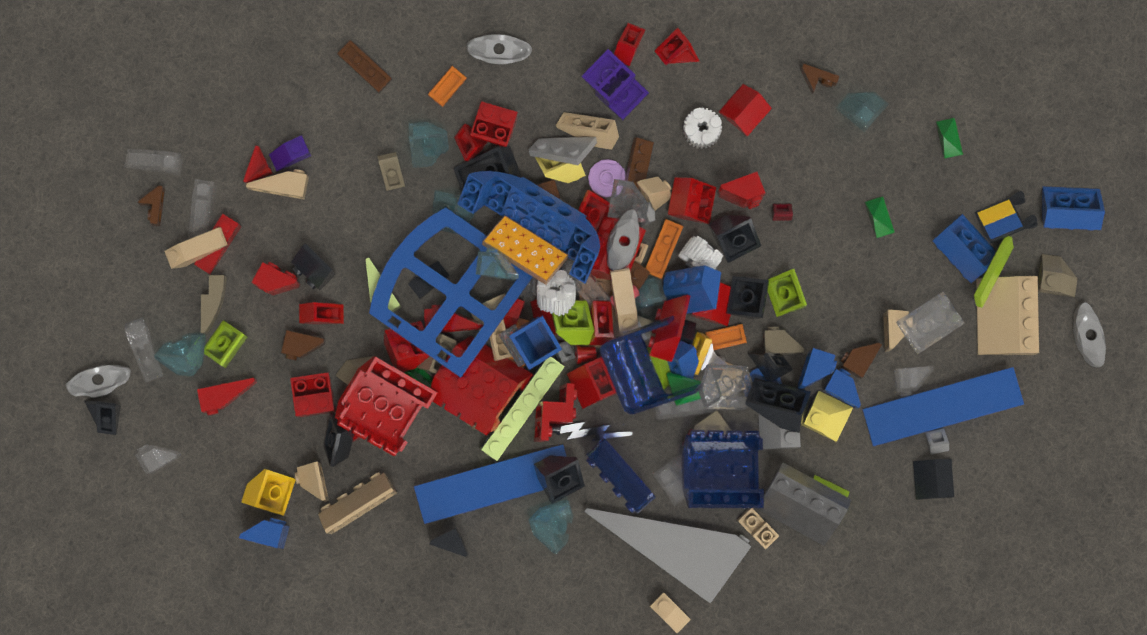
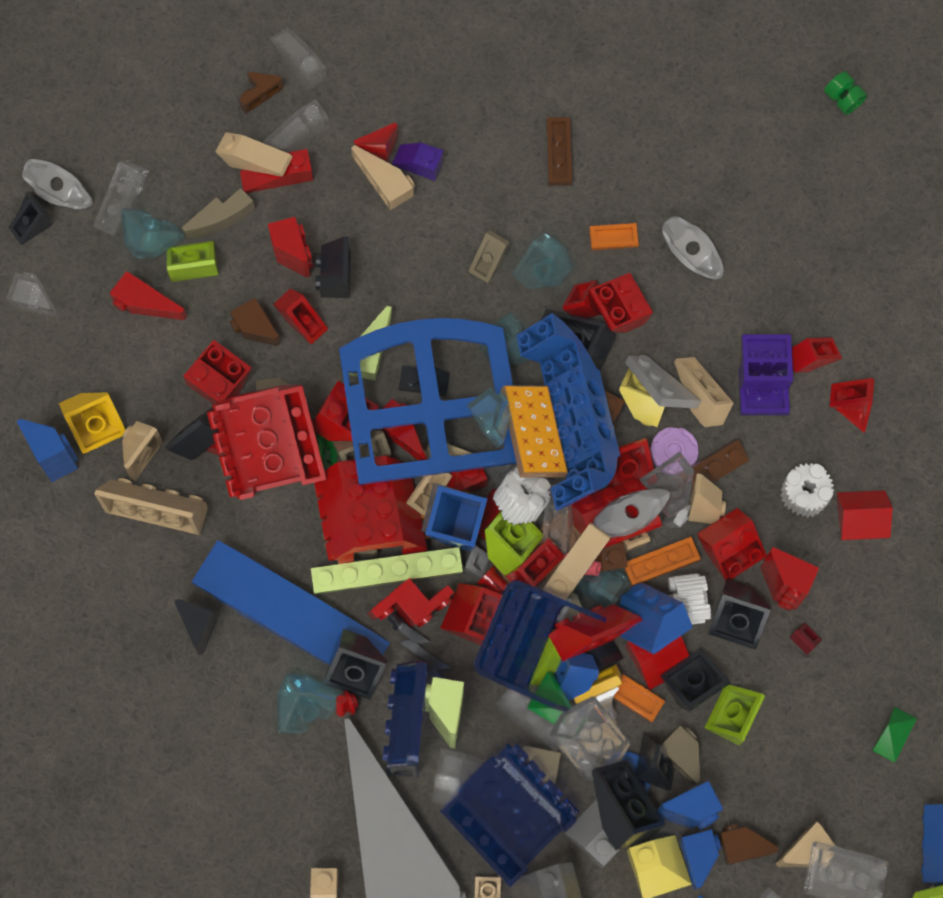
camera: 45 degrees right, 10 degrees down
(575, 501) = (346, 703): none -> red plate
(636, 451) = (444, 706): none -> yellowish green slope

